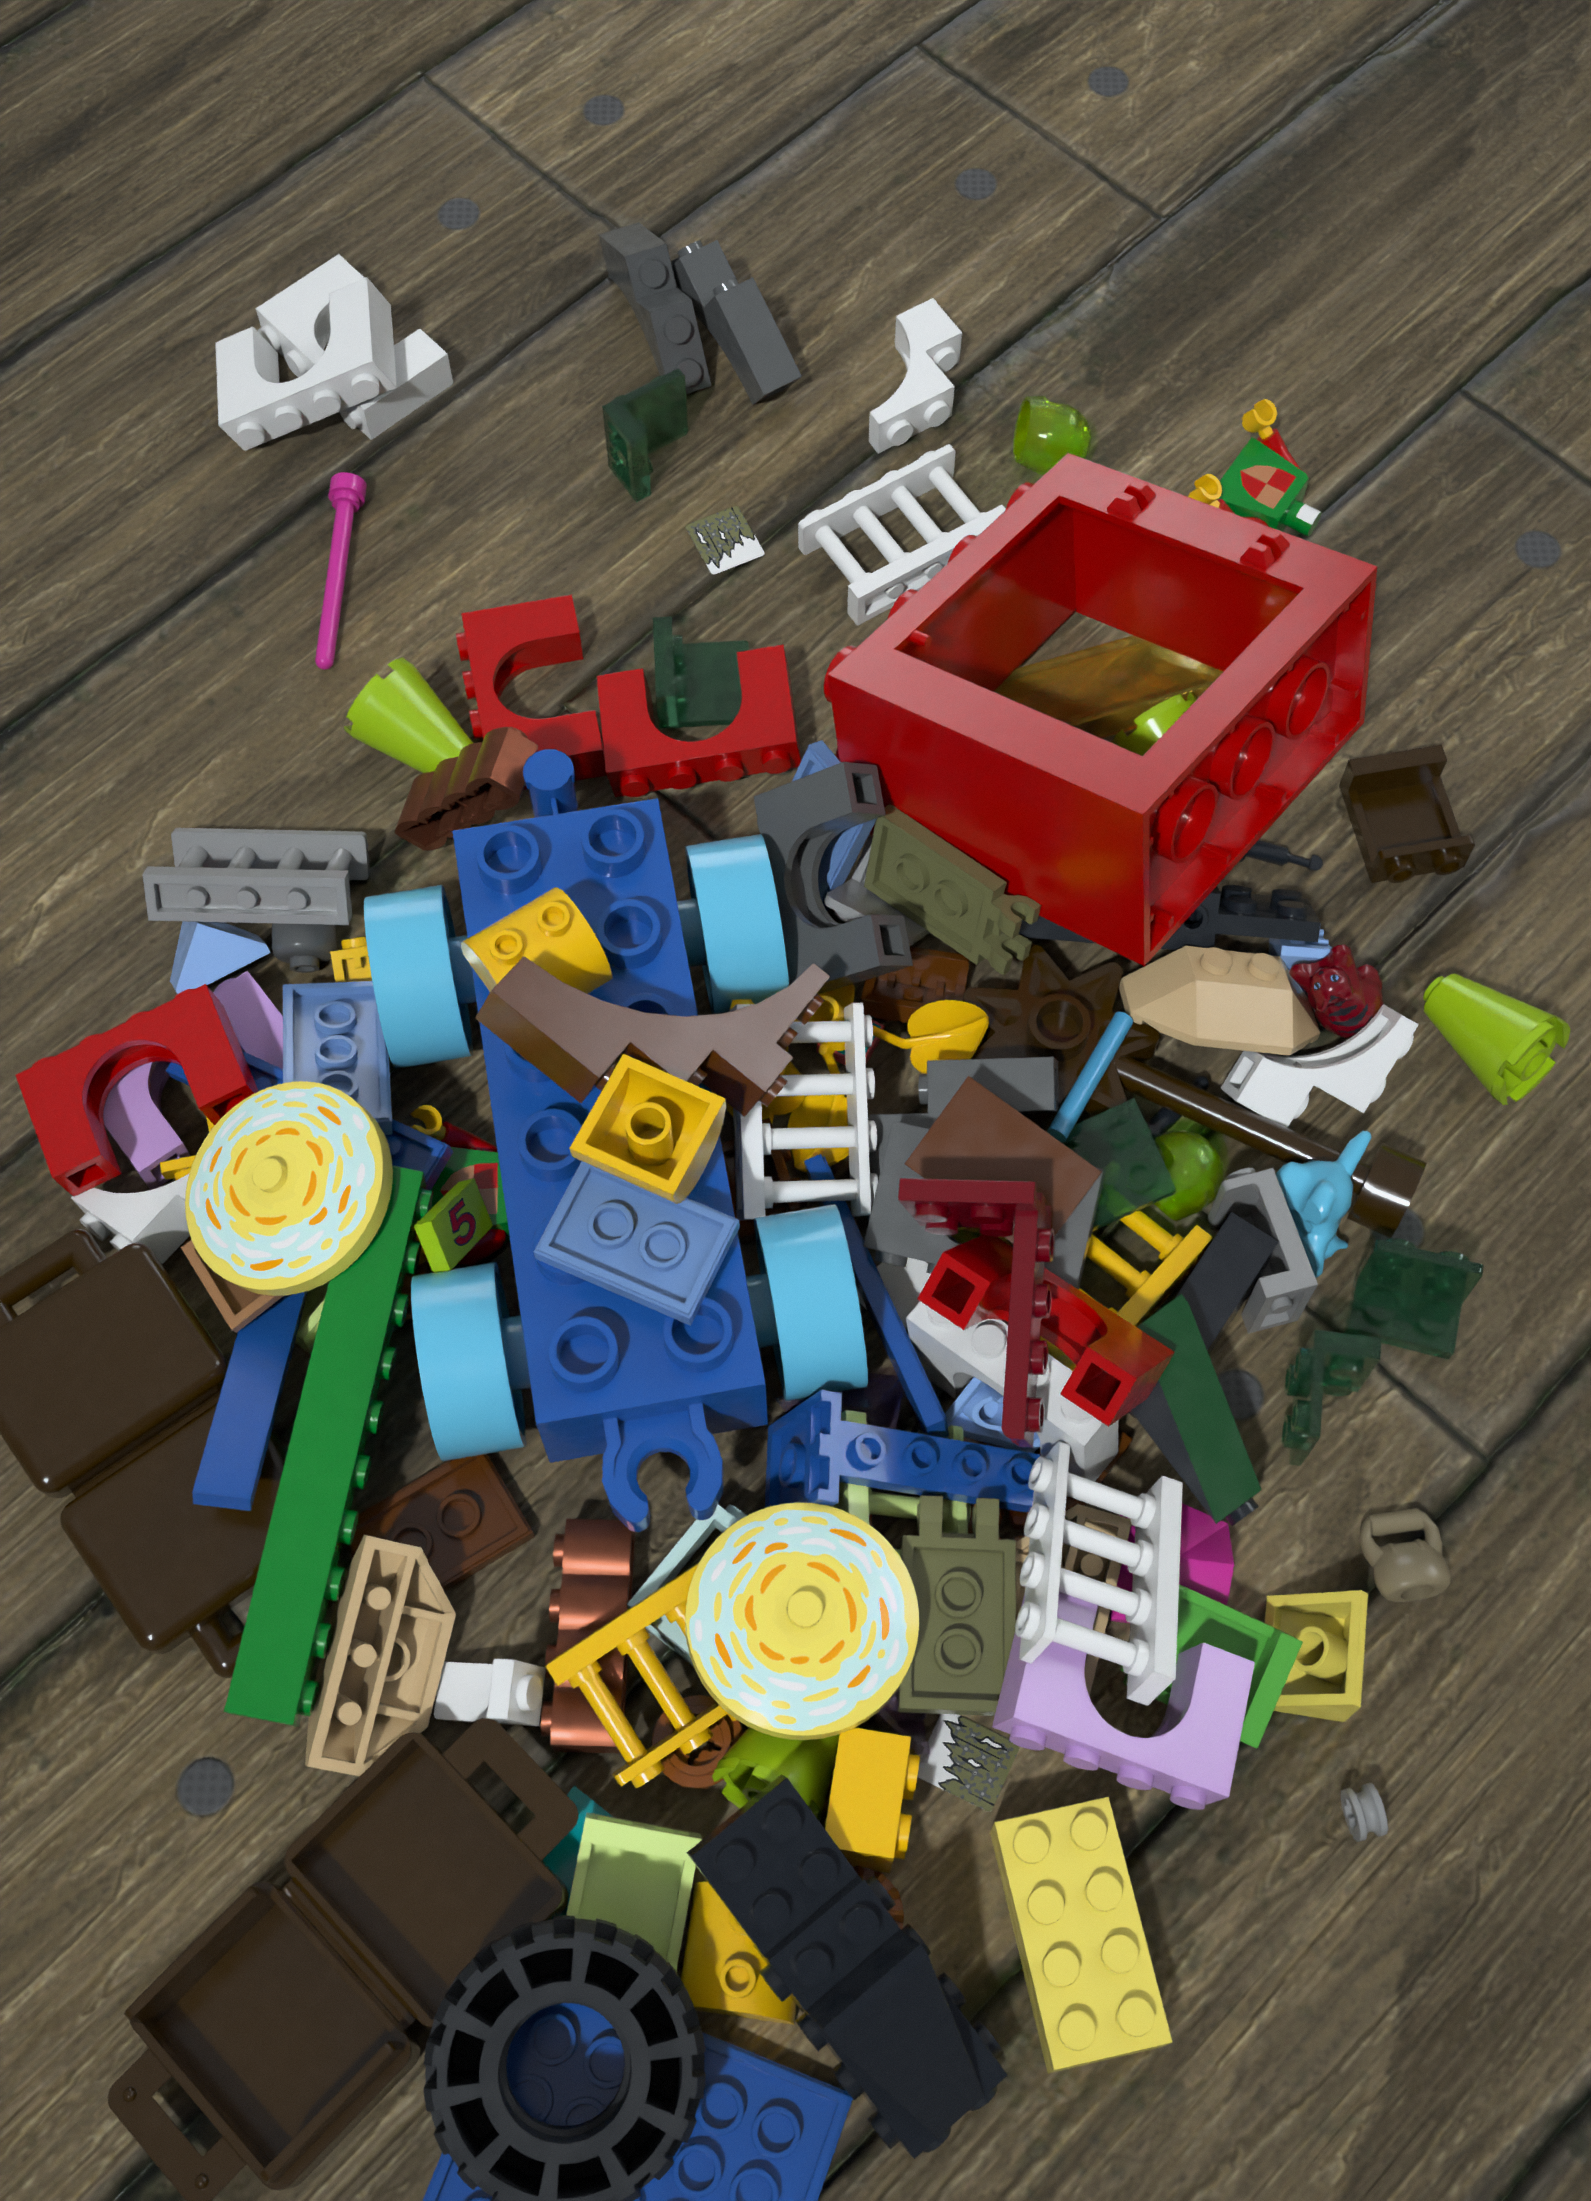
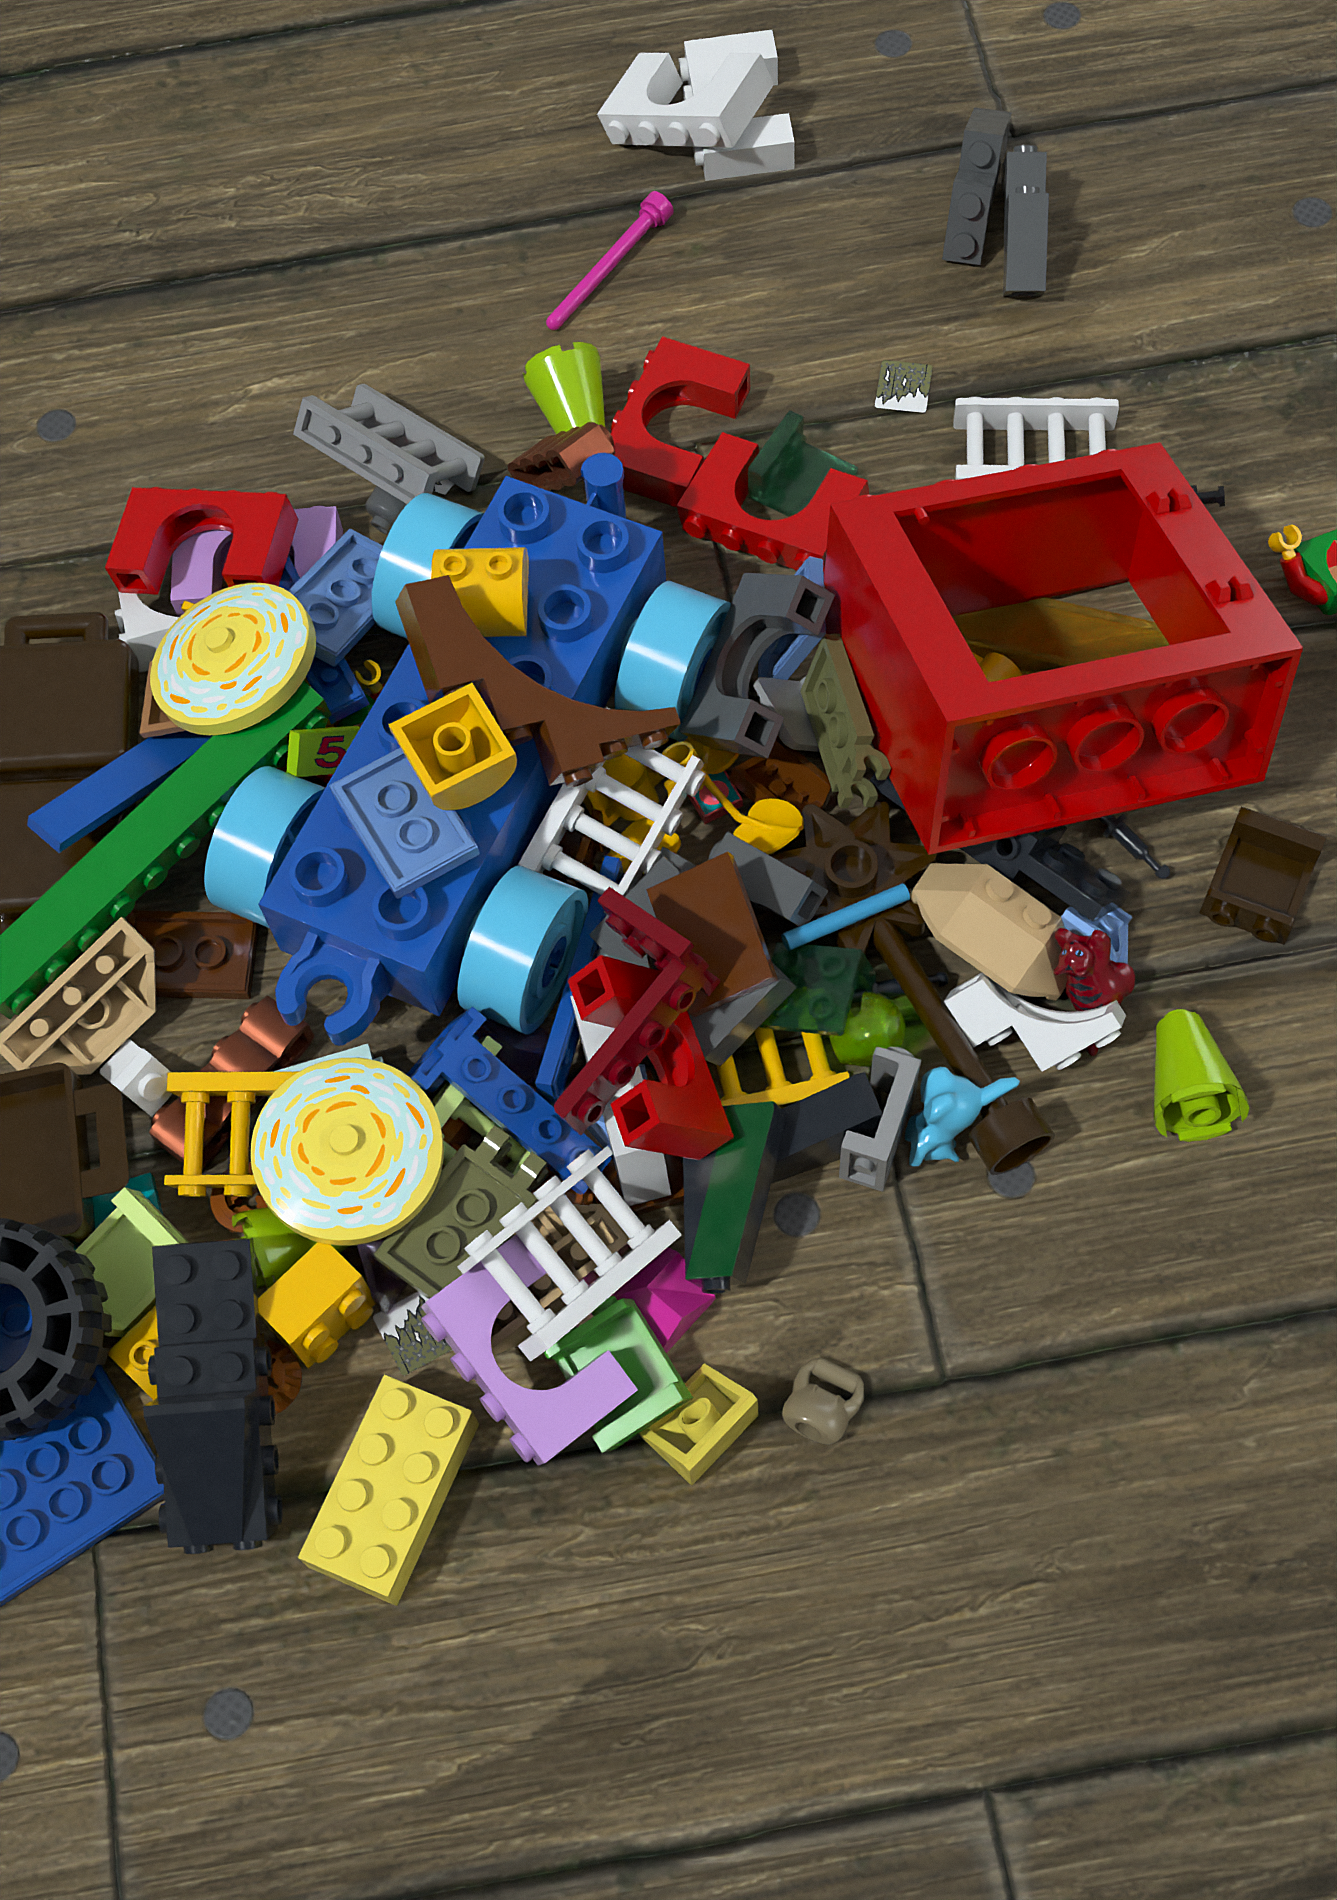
camera: 40 degrees right, 0 degrees up
(211, 952) = (328, 483): light blue slope -> none
(642, 424) = (897, 266): clear green bracket -> none
(929, 348) = (1132, 353): white arch -> none
(1047, 433) = (1206, 437): clear neon green helmet -> none
(1327, 1365) = (859, 1220): clear green bracket -> none
(1364, 1812) = (649, 1550): light grey bush -> none
(1411, 1296) = (970, 1226): clear green bracket -> none

